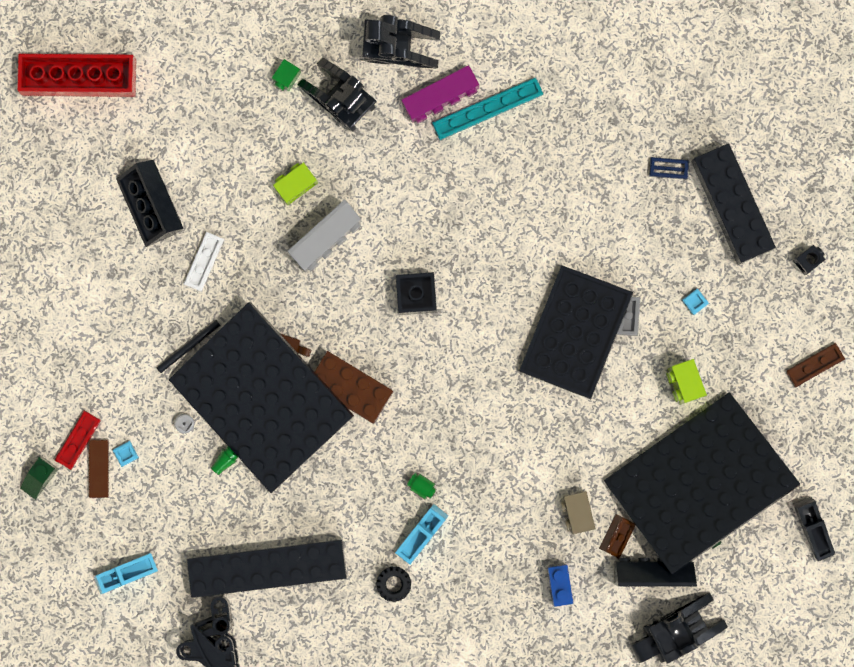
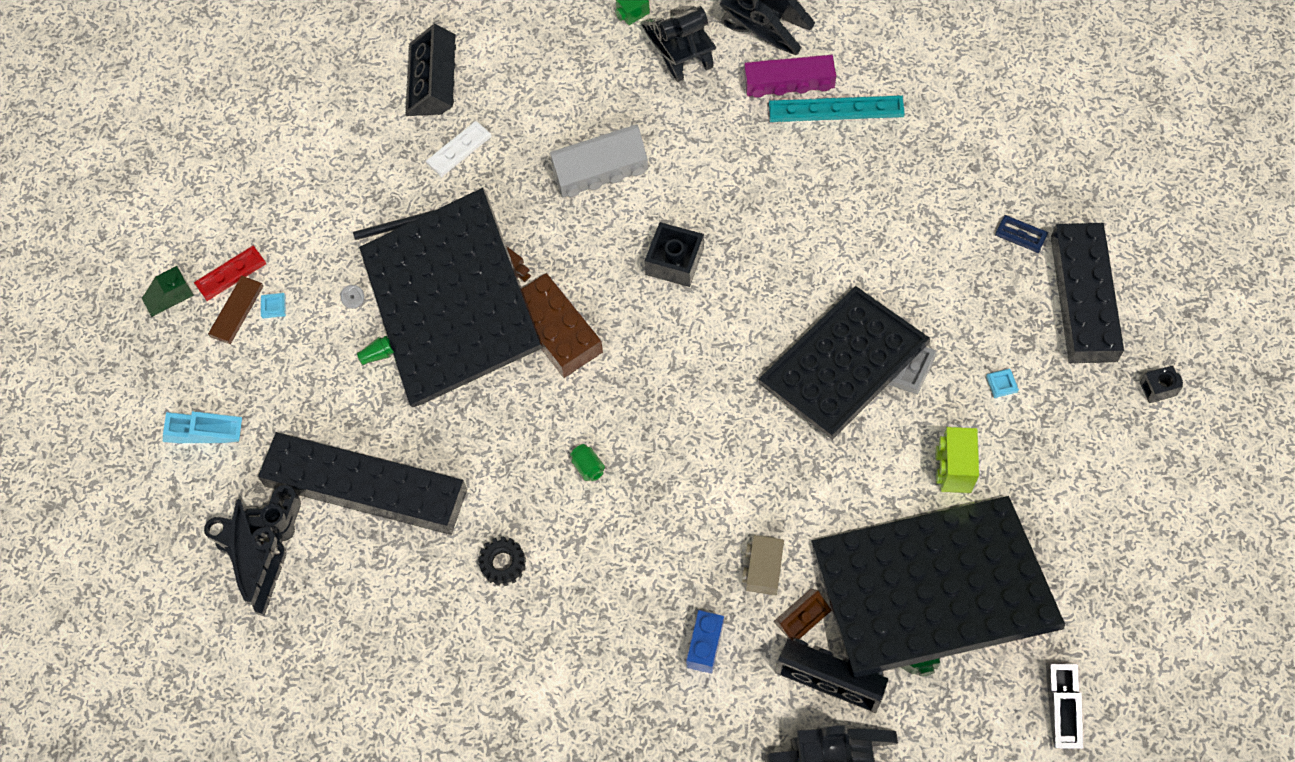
camera: 25 degrees right, 20 degrees down
(295, 183) = (593, 106): lime brick -> none
(421, 534) = (562, 516): medium azure slope -> none
(815, 365) = (1130, 508): reddish brown tile -> none

